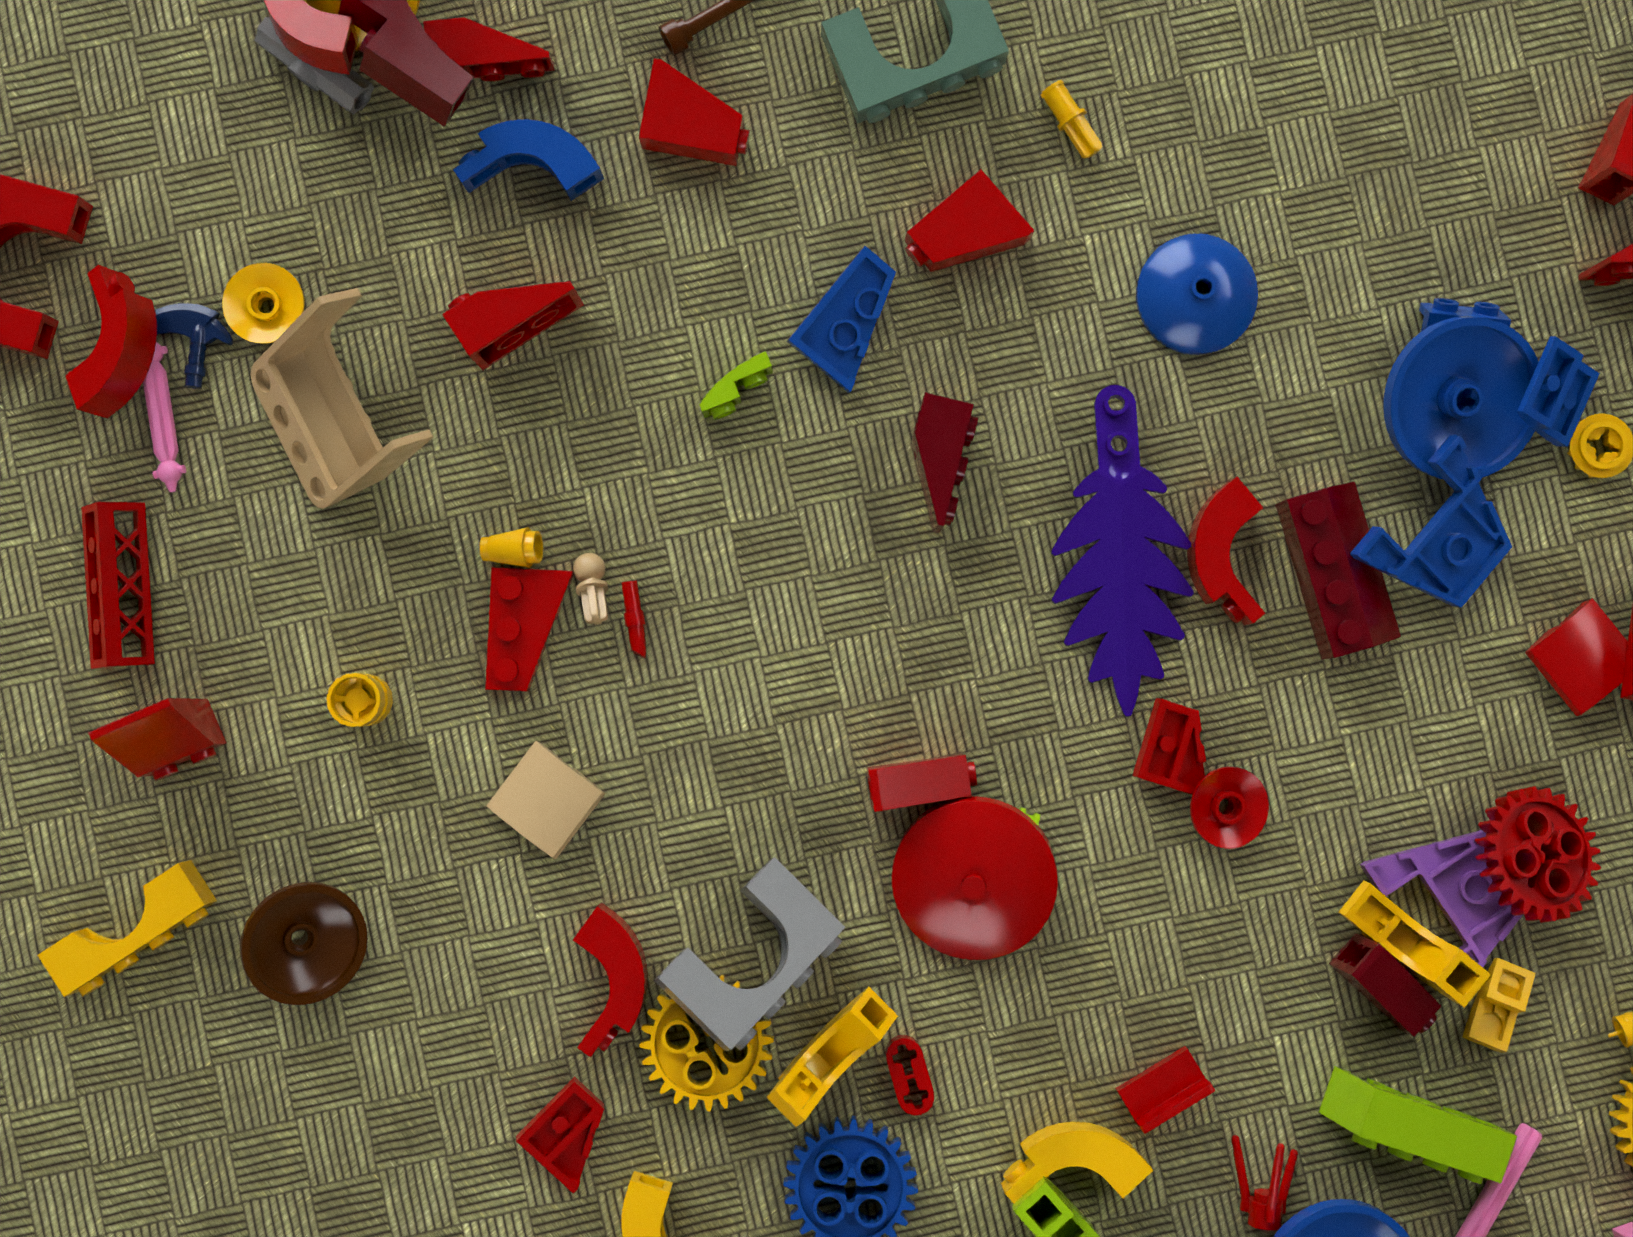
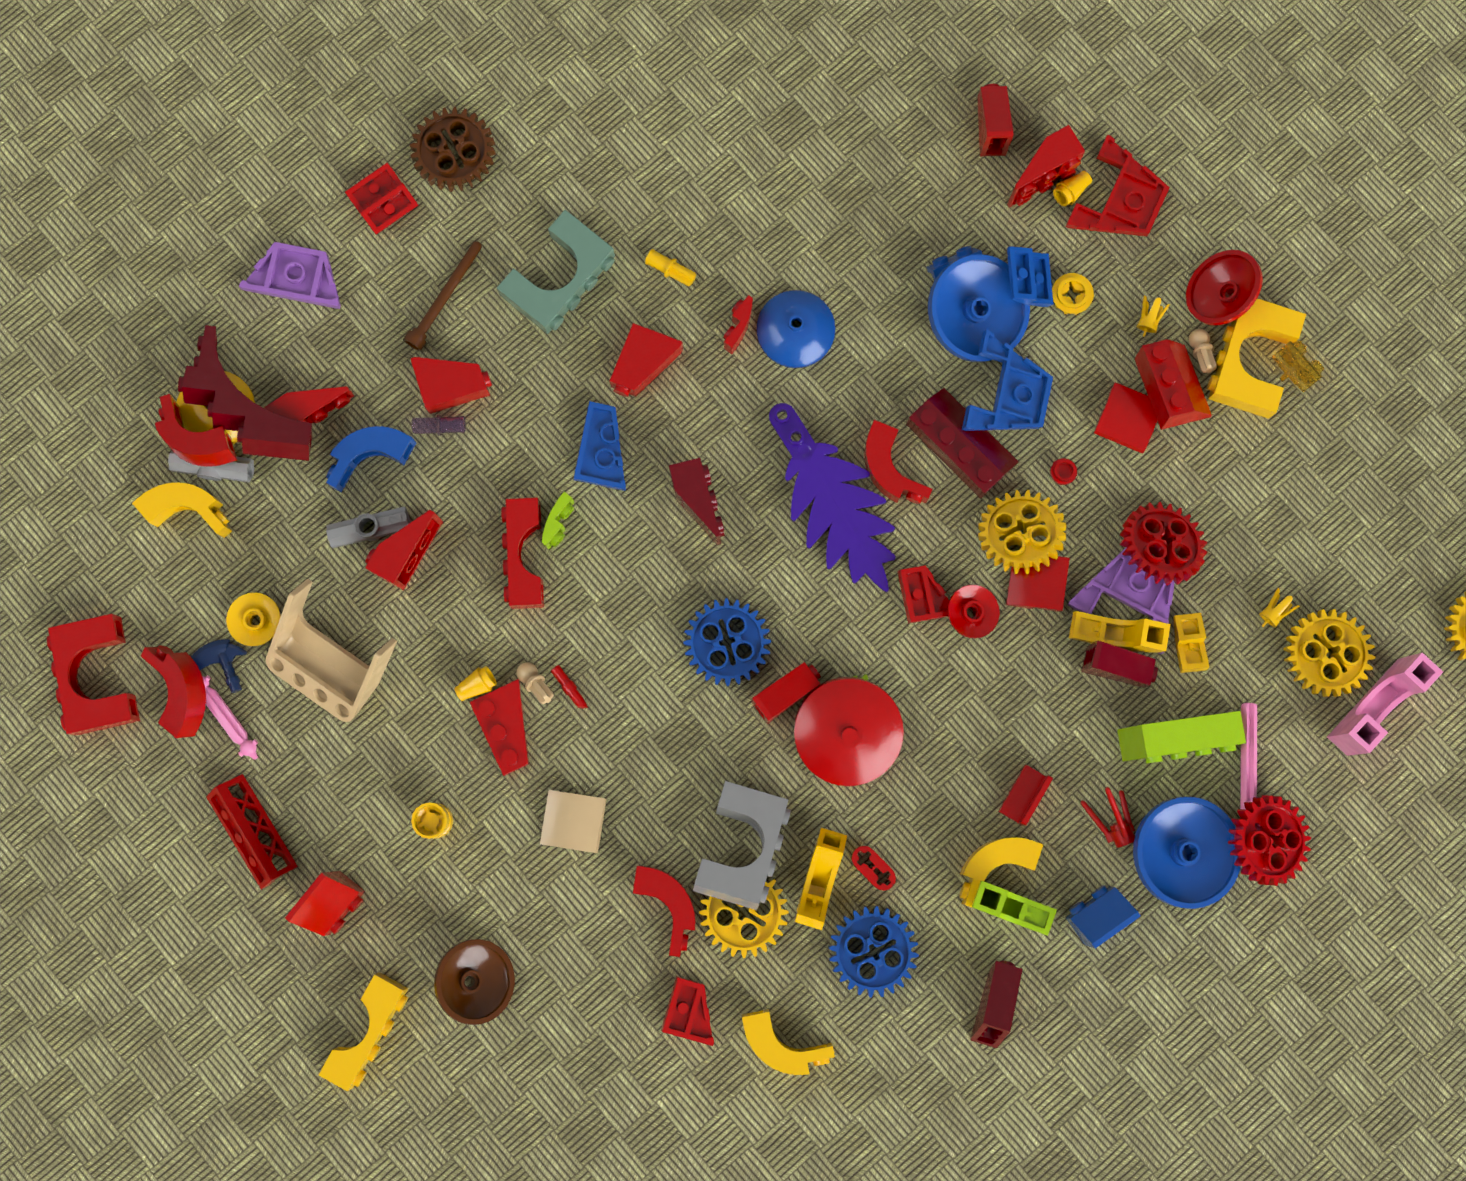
camera: 25 degrees left, 5 degrees down
(230, 79) = (169, 498): none -> yellow arch
(456, 252) = (352, 532): none -> light grey piece
(645, 170) = (438, 425): none -> clear purple axle
(689, 359) = (521, 520): none -> red arch
(913, 680) = (703, 649): none -> blue gear
(1130, 241) = (741, 318): none -> red slope
(1338, 812) = (1041, 588): none -> red slope
(1354, 771) = (1031, 551): none -> yellow gear
(1454, 682) = (1063, 471): none -> red plate

